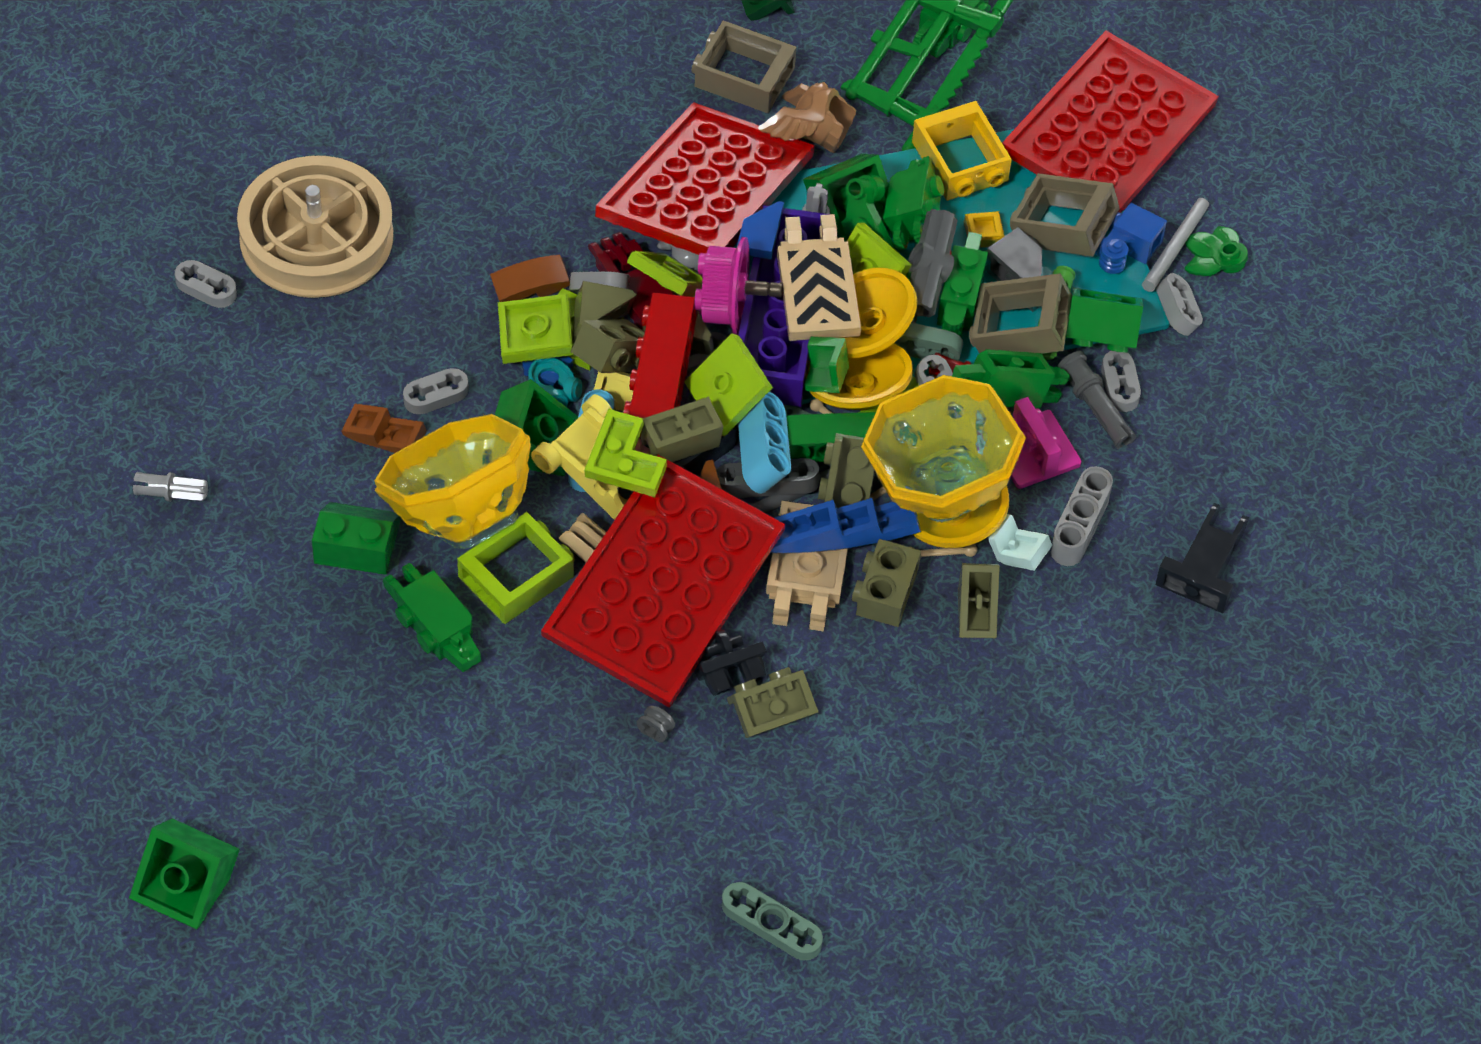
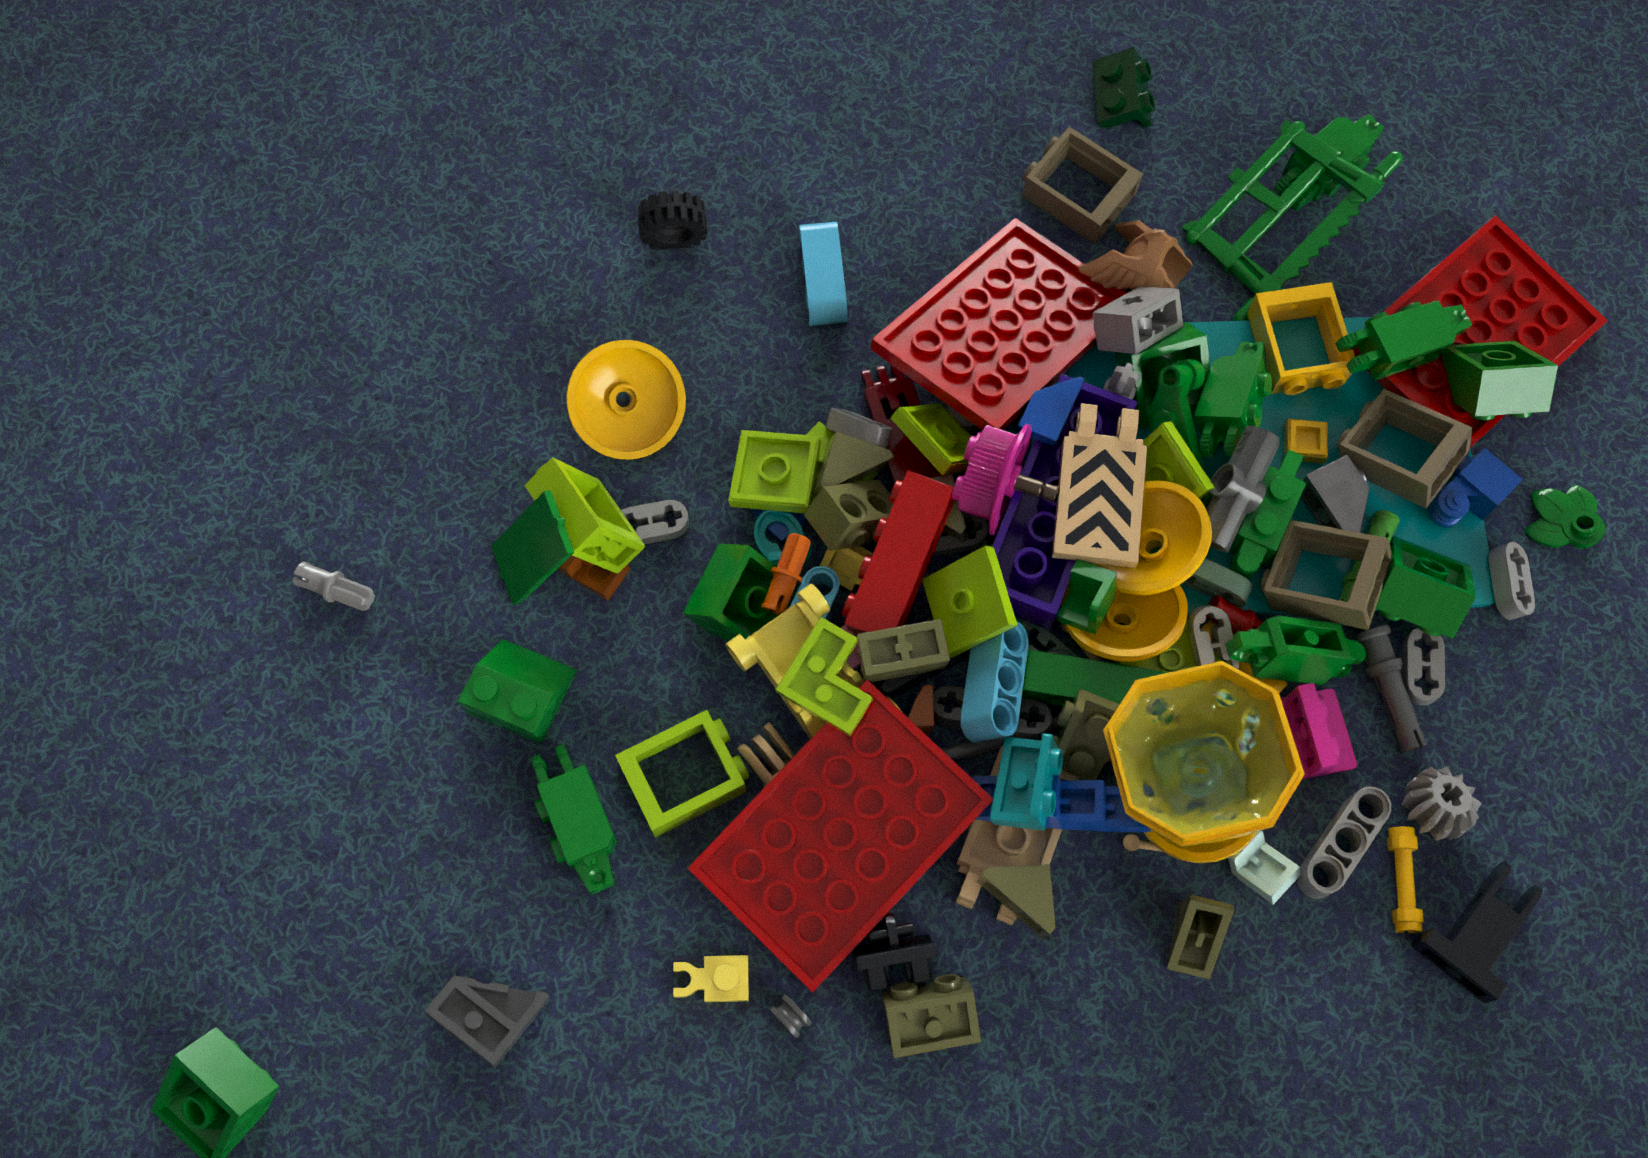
camera: 15 degrees right, 15 degrees up
(207, 281) = (434, 346): light grey beam -> none
(315, 226) = (566, 289): tan wheel -> none
(343, 416) = (532, 548): none -> green piece
(382, 384) = (590, 514): none -> lime window
(392, 151) = (672, 220): none -> black tyre
(396, 772) = (485, 1015): none -> dark grey wing
(405, 281) = (654, 405): none -> yellow dish
(459, 480) = (632, 661): yellow rock -> none
(537, 173) = (823, 273): none -> medium azure beam
(537, 275) = (785, 401): dark orange slope -> none
(567, 399) = (786, 574): none -> orange axle
(588, 711) = (720, 979): none -> light yellow plate
(808, 505) = (1025, 782): none -> teal bracket
(818, 154) = (1138, 319): none -> light grey brick
(824, 588) = (1025, 893): none -> olive slope
(891, 584) = (1106, 890): olive brick -> none
(1044, 131) = (1404, 338): none -> green hinge
(1131, 150) = (1499, 379): none -> green slope
(1132, 510) = (1403, 843): none -> yellow bar
(1154, 472) = (1441, 803): none -> light grey gear
(1175, 244) = (1521, 501): light grey bar -> none

